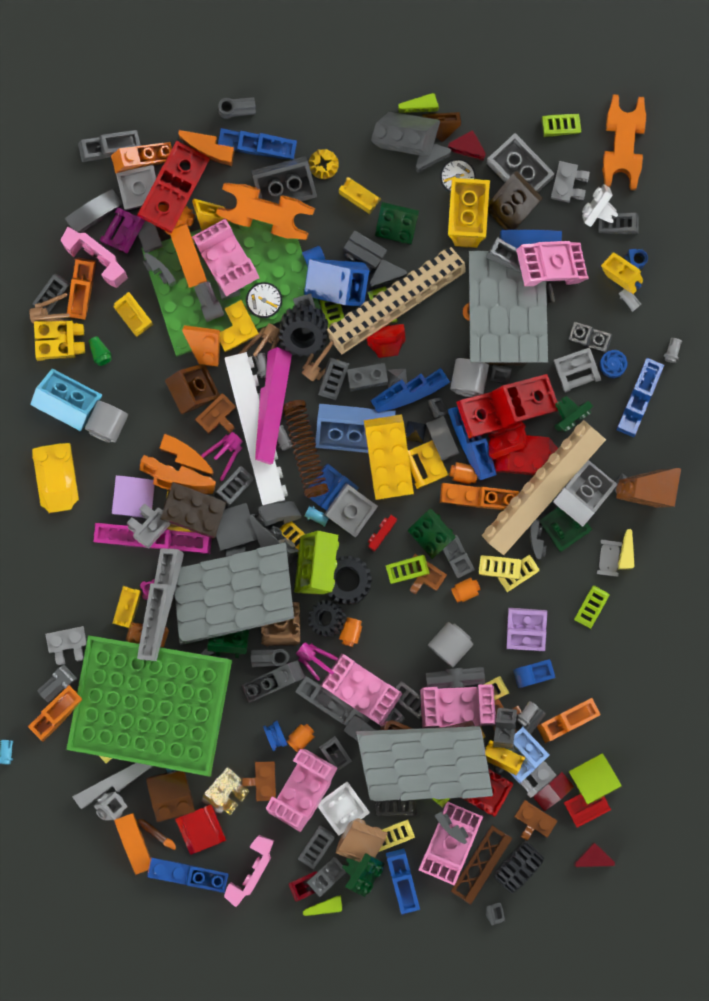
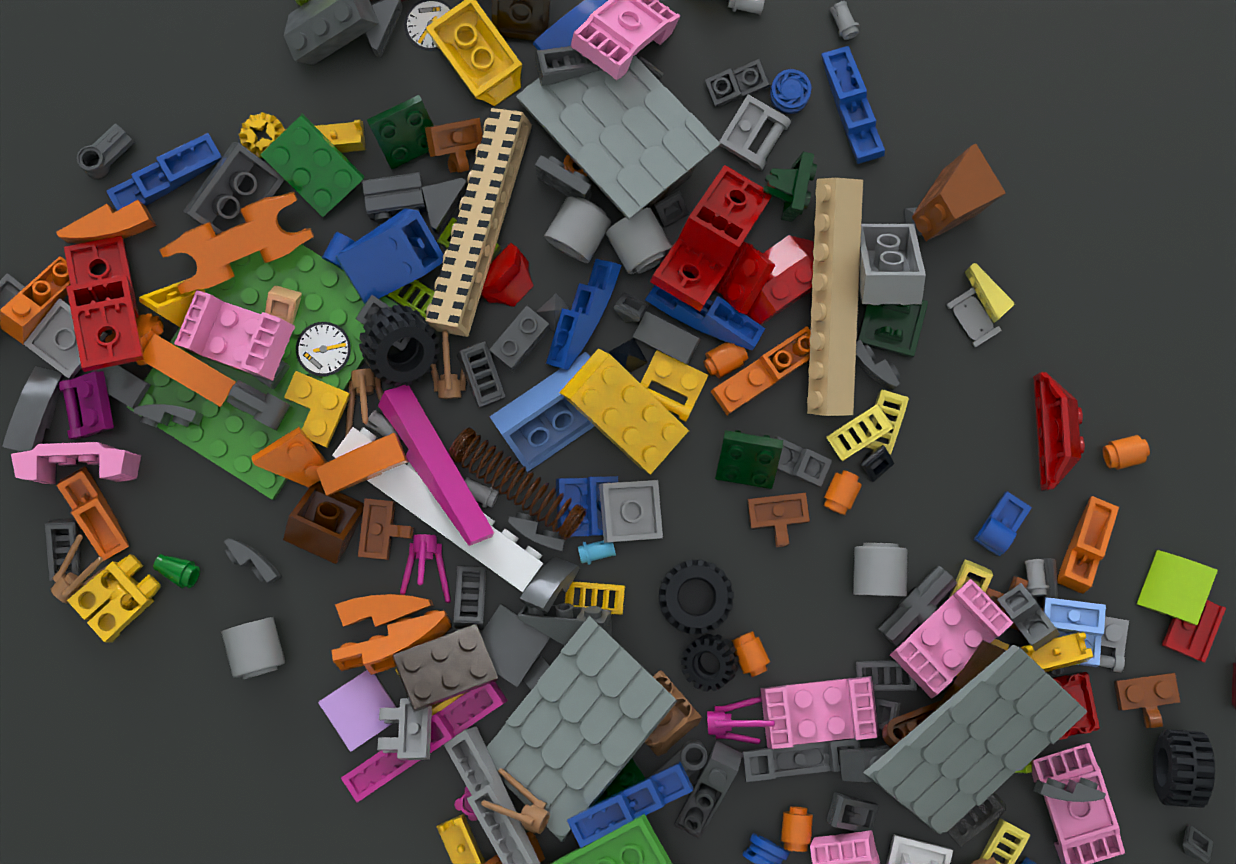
camera: 40 degrees left, 0 degrees up
(55, 477) = (248, 763): yellow slope -> none
(65, 399) = (181, 661): medium azure slope -> none
(132, 314) = (181, 493): yellow hinge -> none
(140, 373) = (245, 555): none -> dark grey slope
(175, 619) = (532, 817): none -> medium nougat plant
(235, 374) = (361, 464): none -> orange slope
(236, 652) = (629, 804): none -> blue slope
(262, 260) = (283, 303): none -> light nougat slope
(292, 477) = (529, 528): none -> dark grey slope
(316, 563) = (645, 608): lime slope -> none
(335, 202) = (312, 165): none -> green plate
(386, 526) = (690, 520): red plate -> none
(418, 248) = (454, 140): none -> dark orange plate
(423, 563) = (771, 505): lime slope -> none
(444, 345) = (578, 228): none -> light grey piece
(460, 322) = (552, 173): none -> dark grey plate
(489, 866) = (1143, 796): reddish brown fence -> none
(496, 590) = (877, 462): none -> black slope
(526, 629) = (949, 479): lavender slope -> none
(553, 791) = (1142, 642): dark red slope -> none
(596, 590) = (989, 381): lime slope -> none
(602, 650) = (1057, 430): none -> red wedge
(628, 690) = (1126, 452): none -> orange brick

